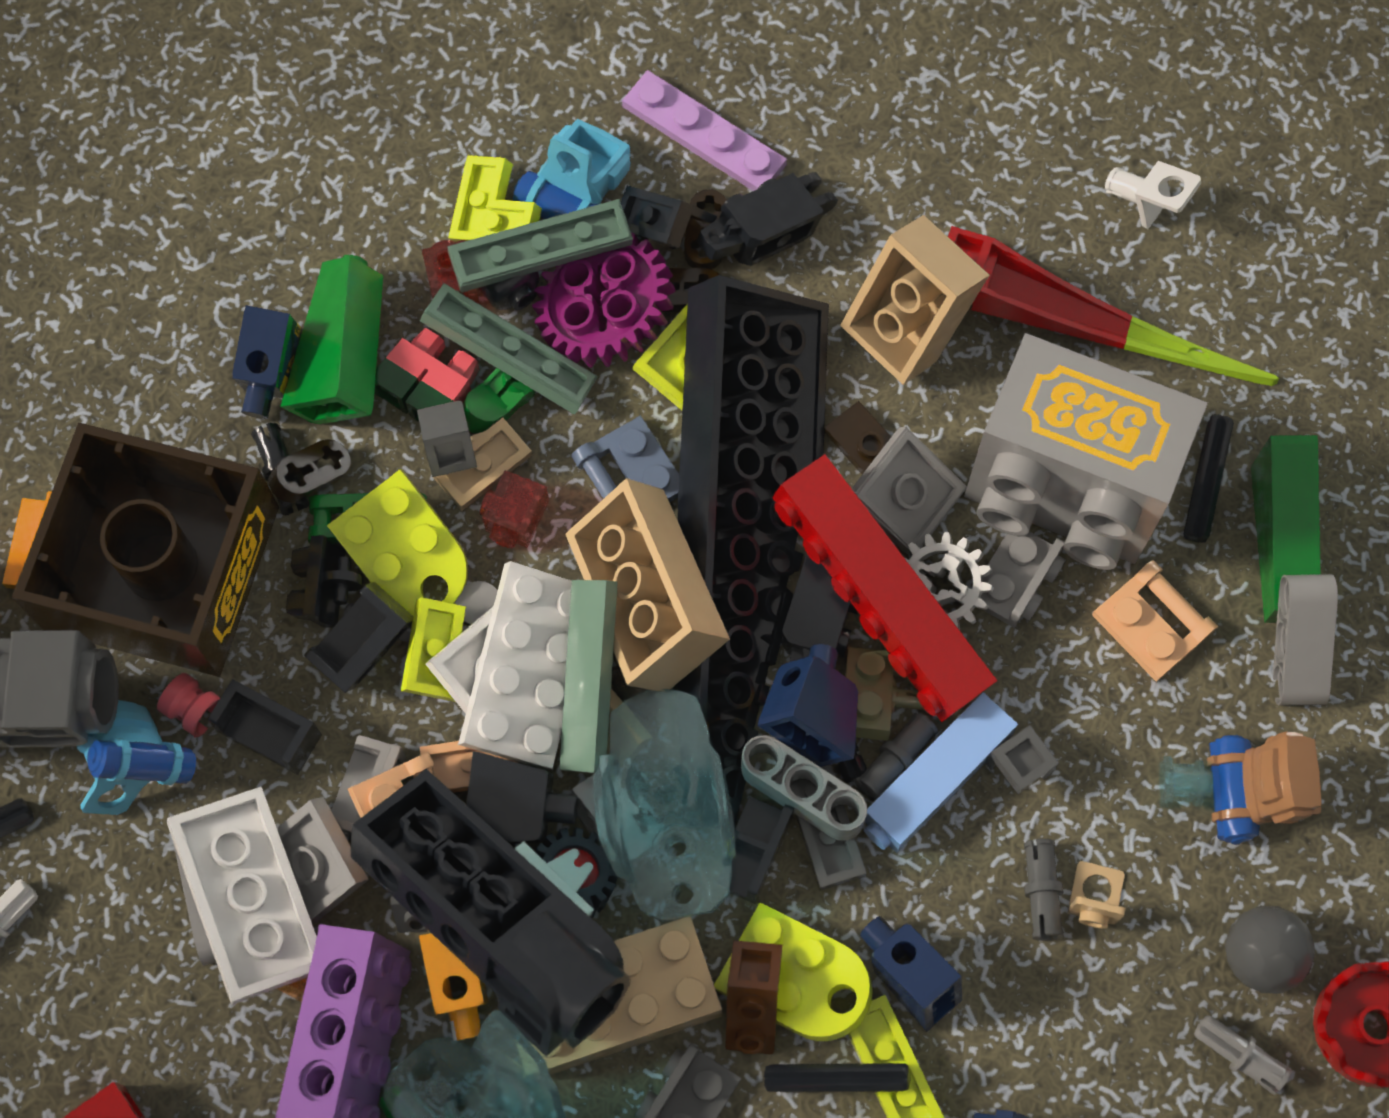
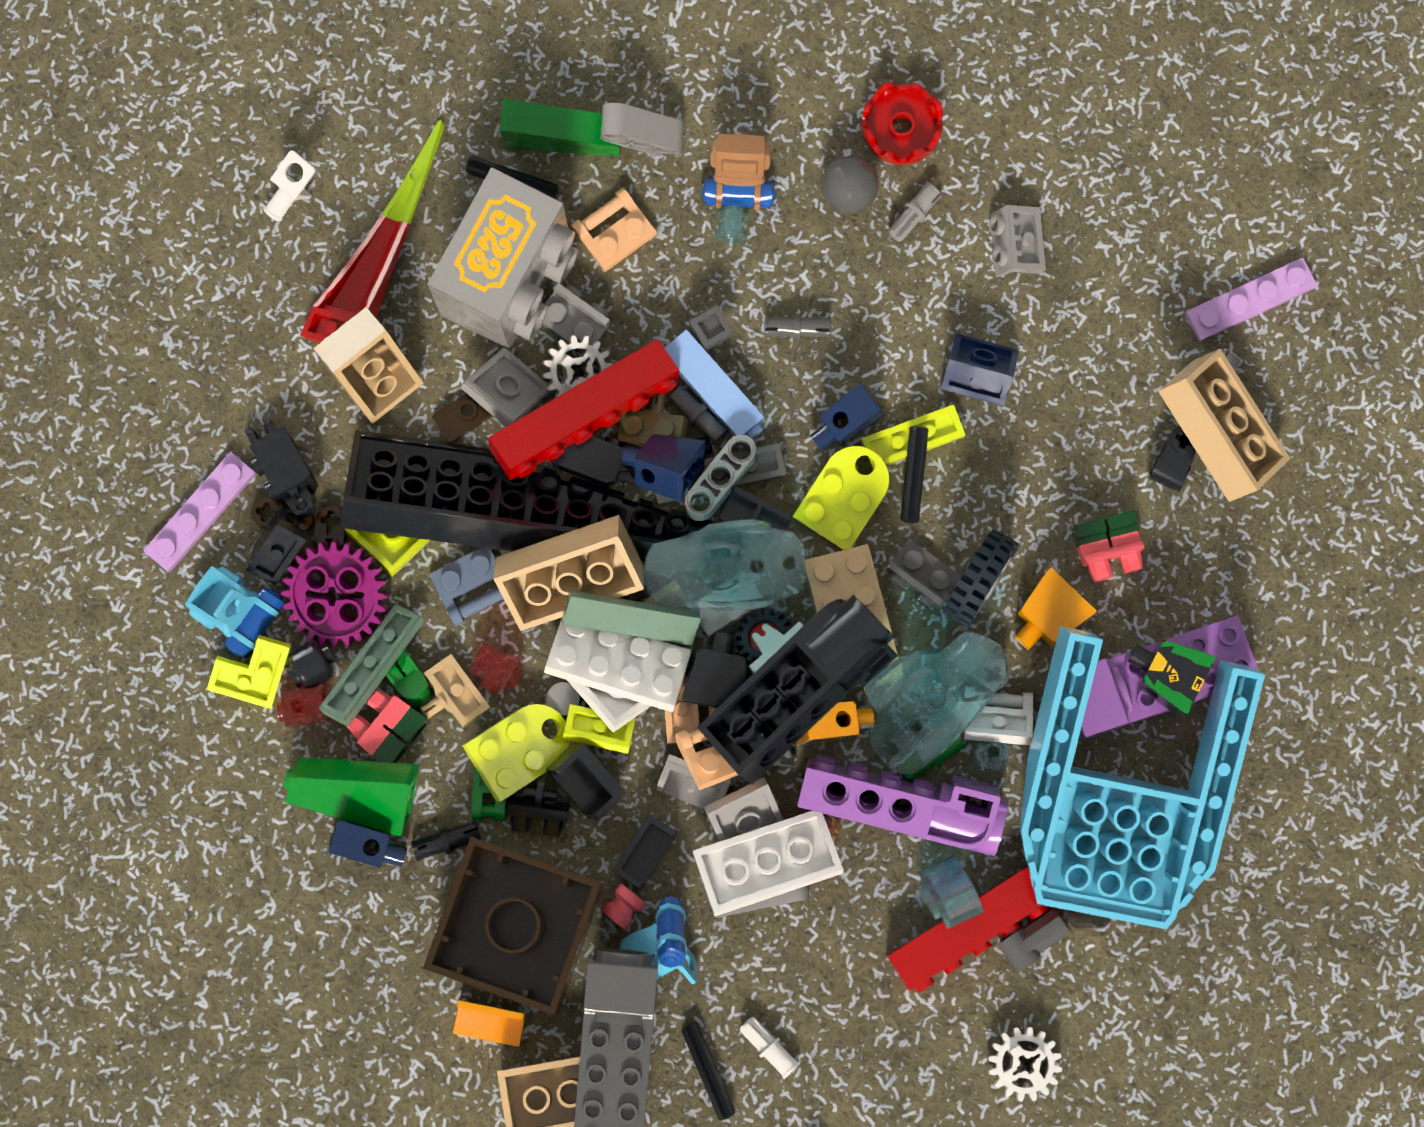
camera: 85 degrees left, 10 degrees up
(305, 463) = (458, 813): dark brown beam -> none
(446, 438) = (440, 712): dark grey panel -> none
(540, 245) = (295, 634): sand green tile -> none
(753, 997) = (858, 522): reddish brown bracket -> none
(1094, 912) = (815, 295): tan bracket -> none

